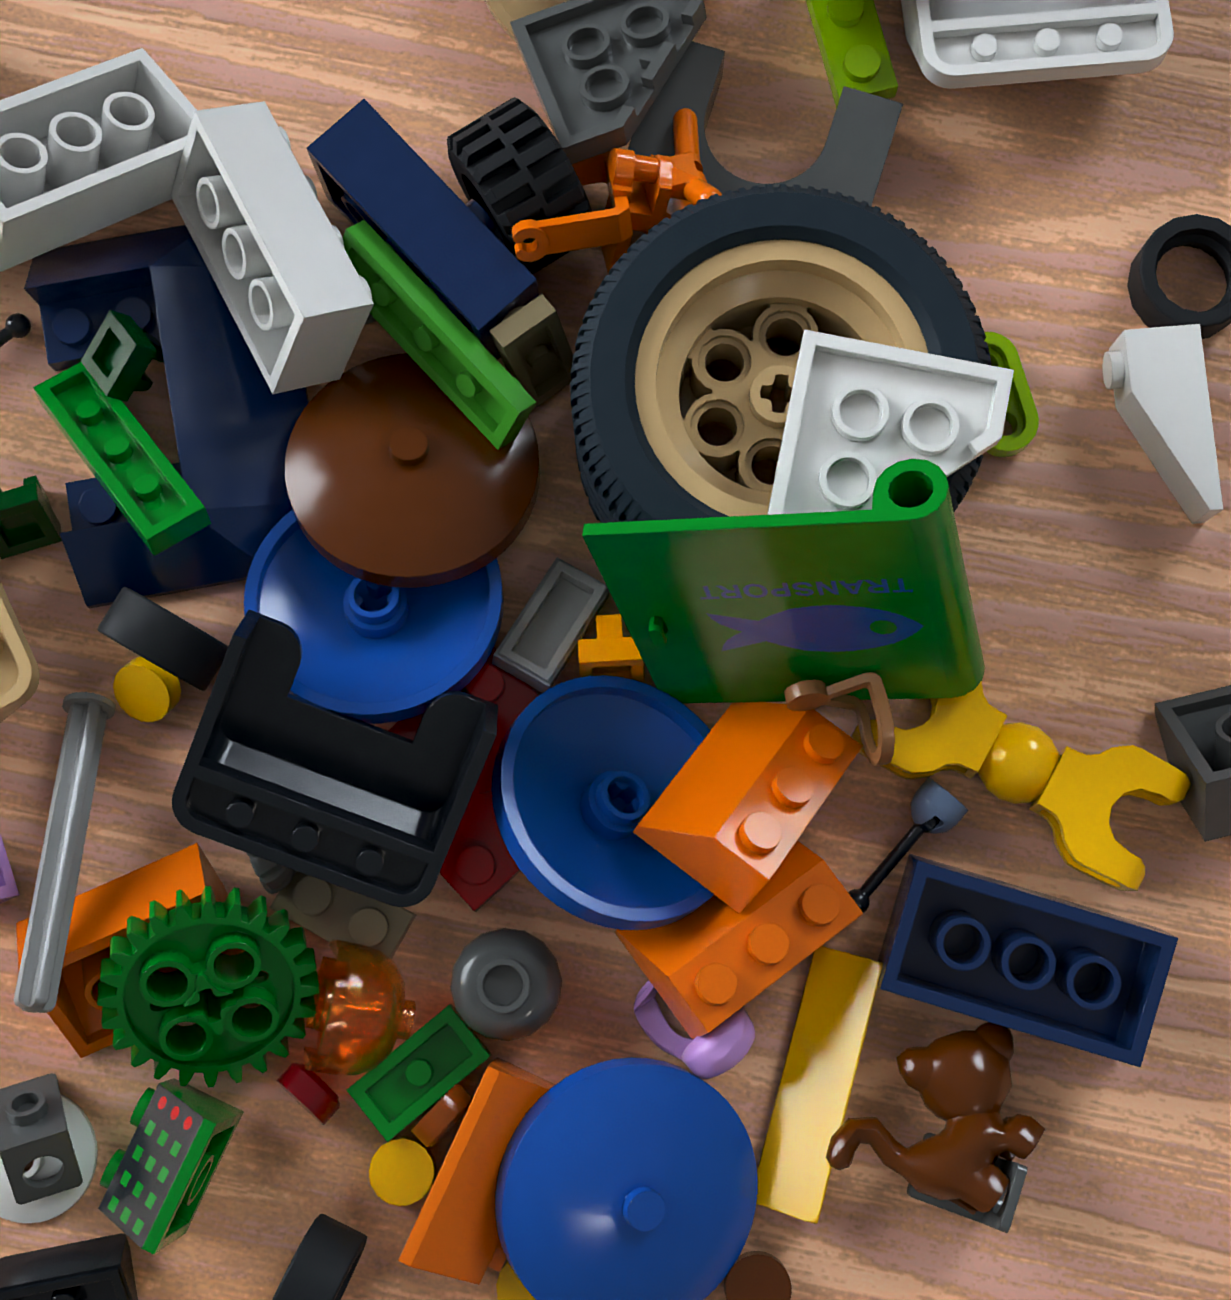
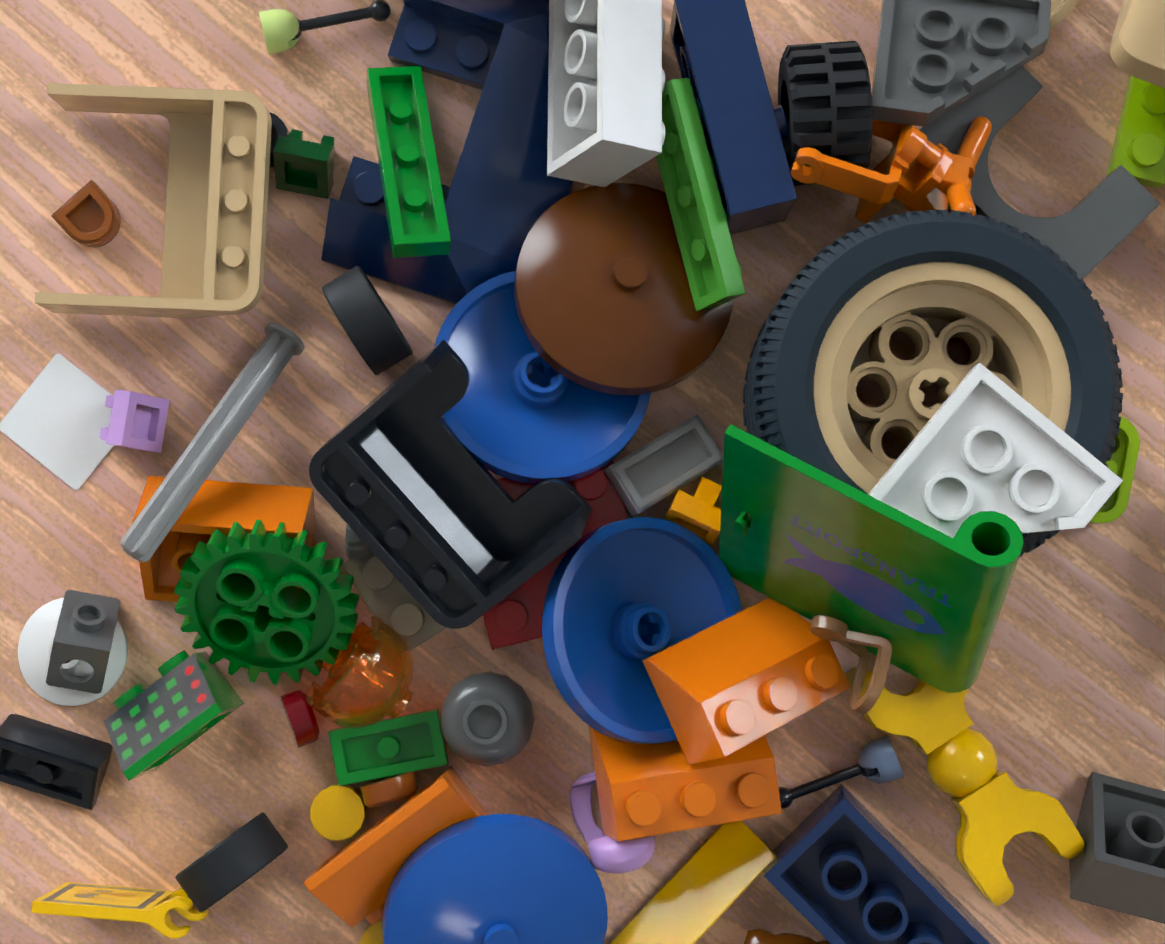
camera: 30 degrees right, 5 degrees up
(121, 356) = (447, 81): dark green tile -> none
(146, 690) = (332, 350): yellow piece -> none
(535, 348) = (767, 247): dark tan plate -> none

